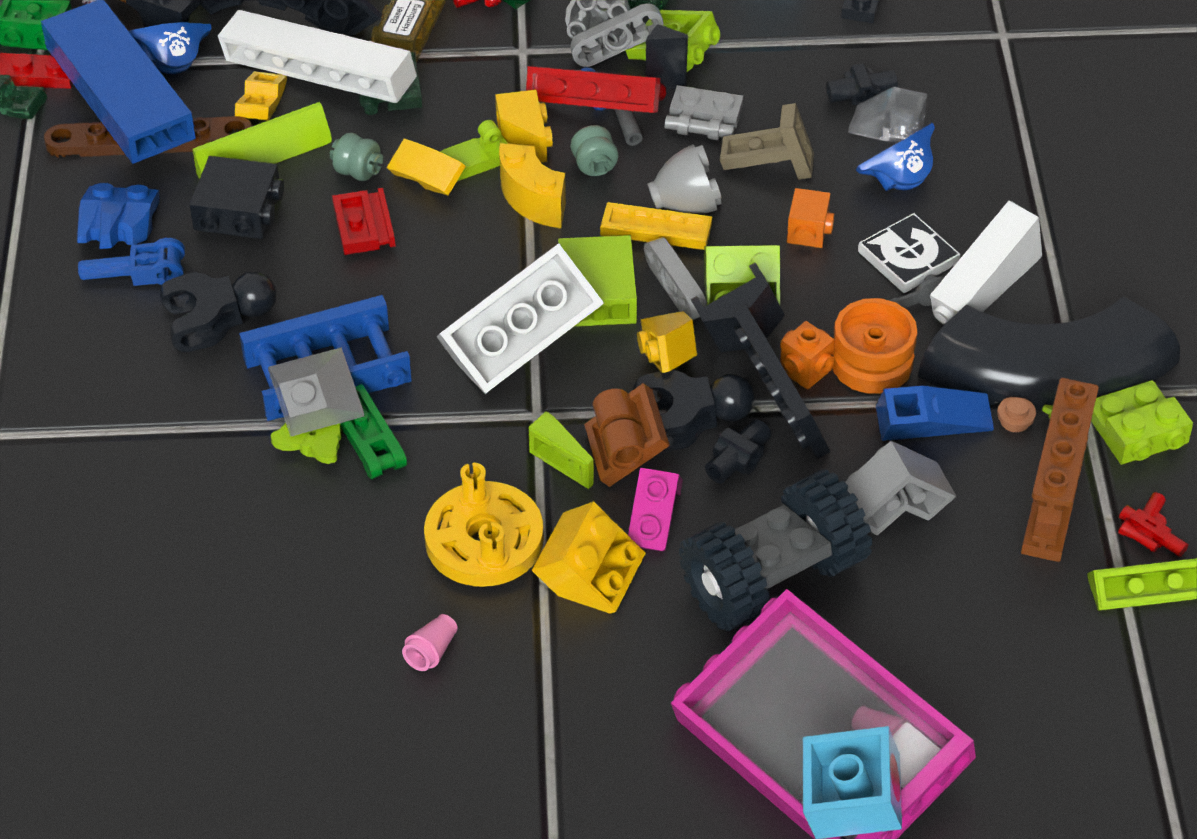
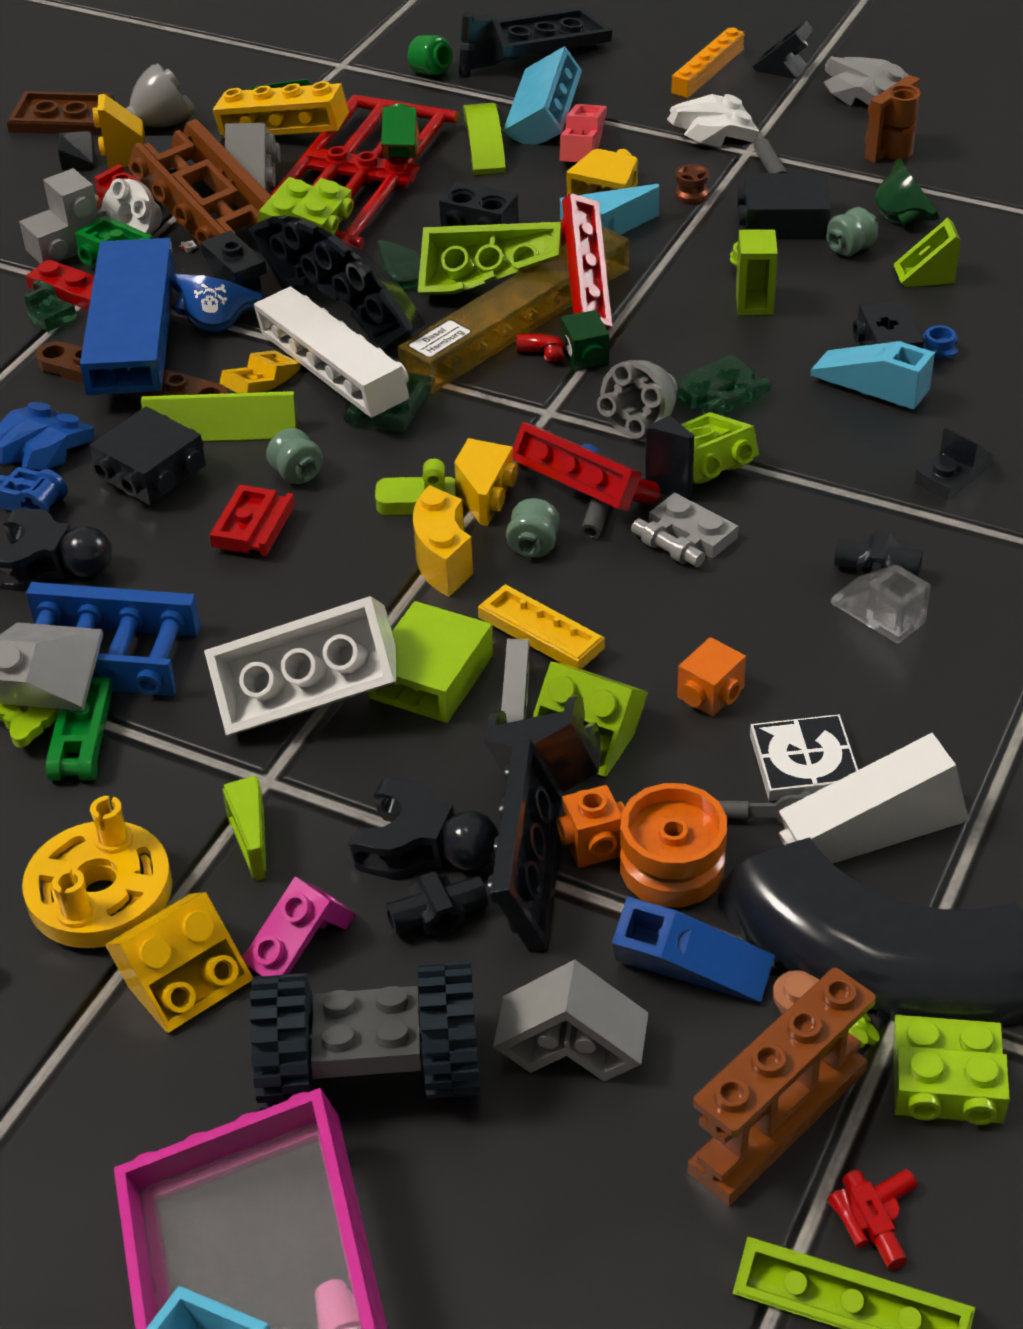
camera: 30 degrees right, 5 degrees down
(426, 166) = (352, 488): yellow slope -> none
(613, 48) = (627, 432): light grey beam -> none
(625, 432) = (321, 830): dark orange plate -> none
(667, 340) = (445, 751): yellow slope -> none
(684, 183) = (599, 592): light grey piece -> none
(771, 145) = (735, 582): dark tan bracket -> none
(903, 164) = (863, 654): blue hat -> none

